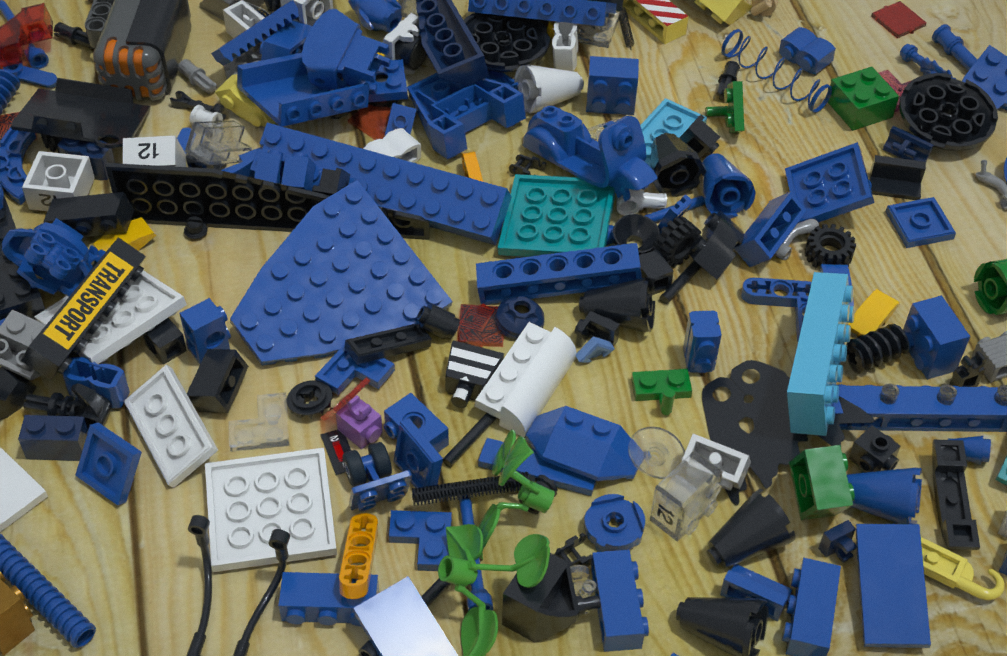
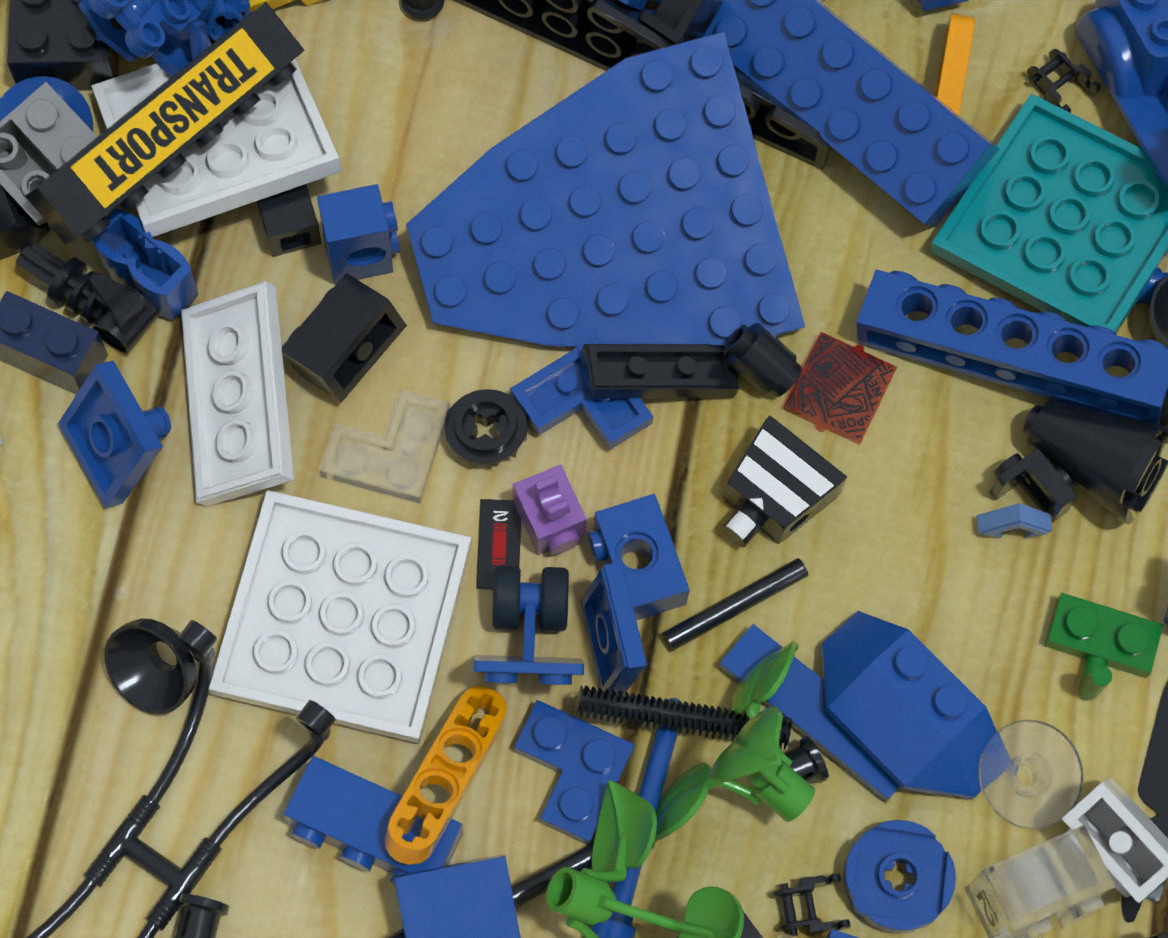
camera: 20 degrees right, 20 degrees up
(165, 572) = (140, 671): none -> black piece
(345, 399) = (540, 461): clear red piece -> none
(512, 322) = (897, 417): dark blue piece -> none
(527, 377) = (871, 533): white brick -> none

